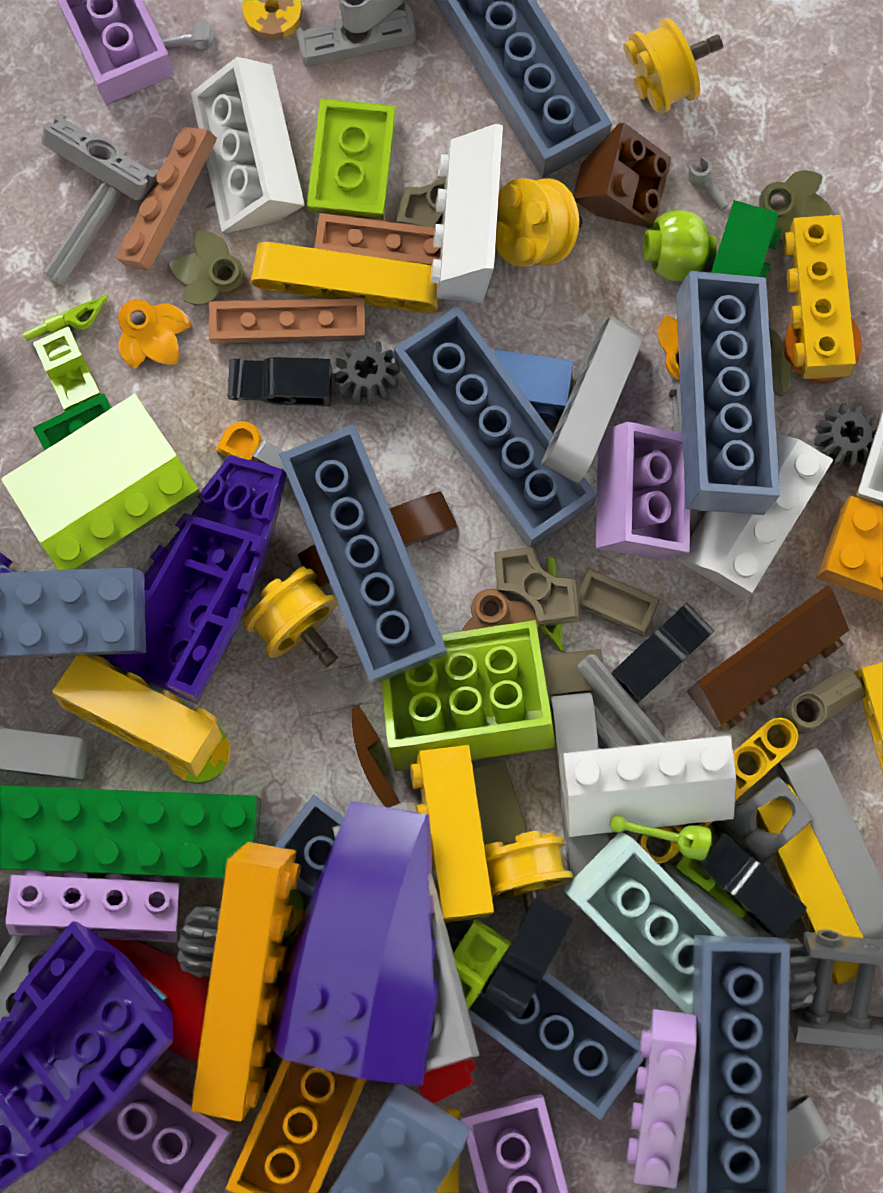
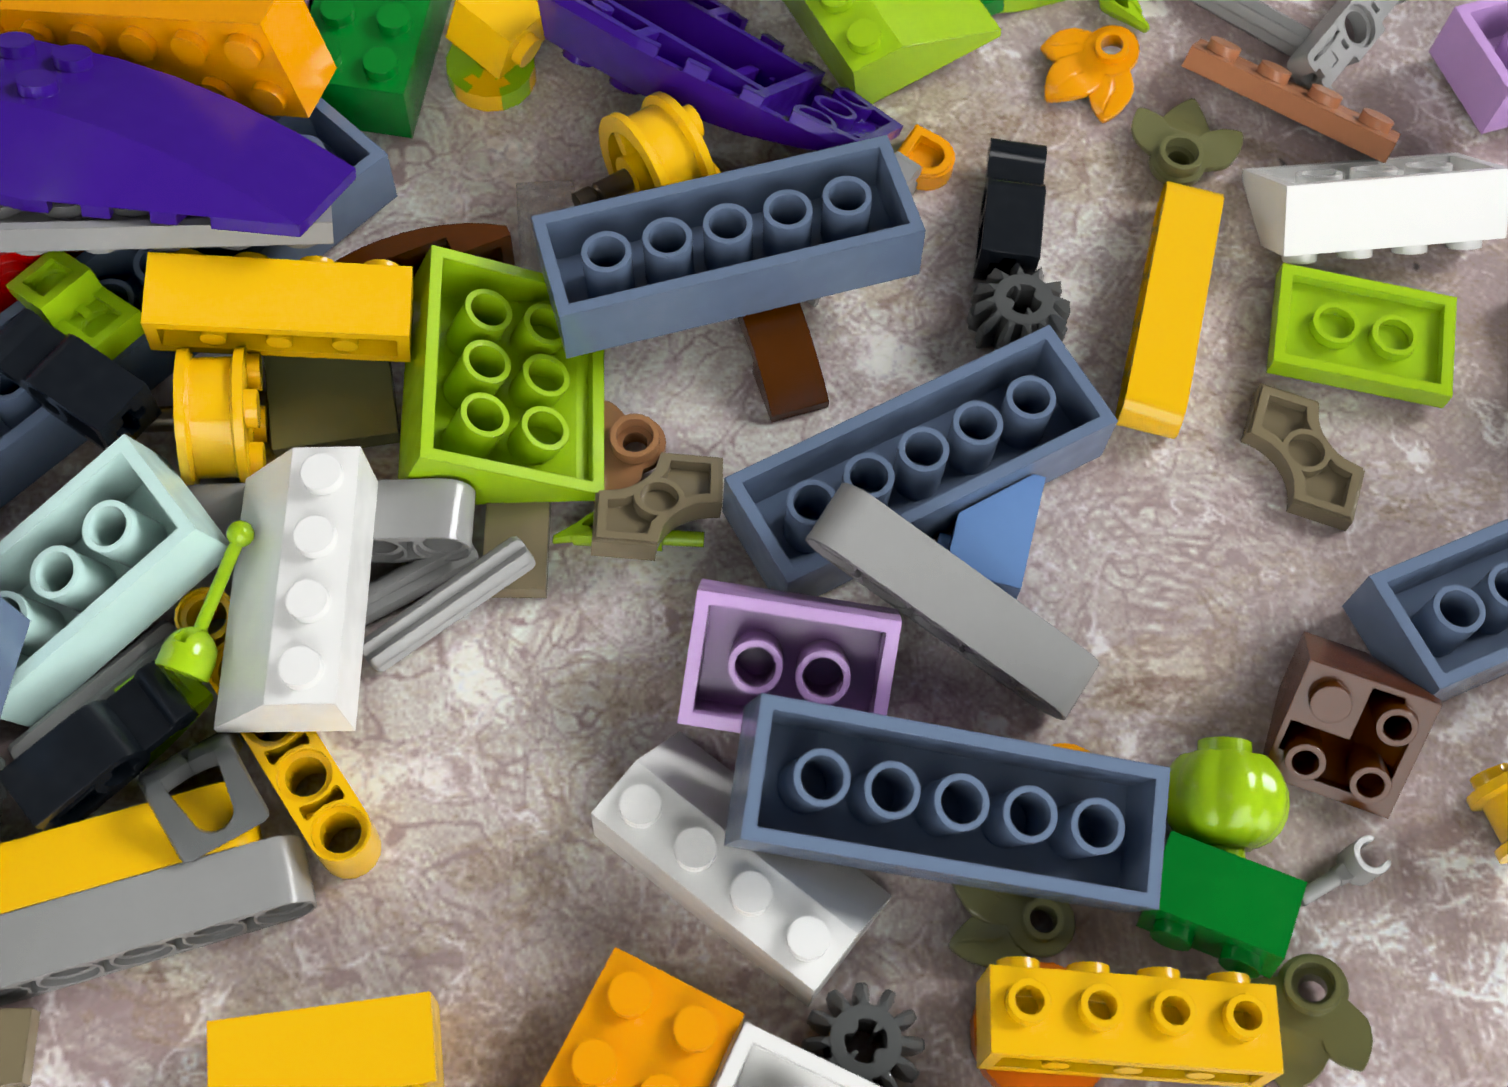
camera: 90 degrees right, 15 degrees down
(287, 320) = (1104, 229): nougat plate -> none
(376, 239) = (1225, 379): nougat plate -> none
(468, 215) = (1267, 458): white slope -> none
(536, 222) = (1260, 559): yellow wheel -> none
(617, 602) = (619, 628): dark tan tile -> none
(662, 652) = (521, 676): black piece -> none
(769, 659) = (477, 839): reddish brown slope -> none
(825, 700) = (392, 933): dark tan piece -> none

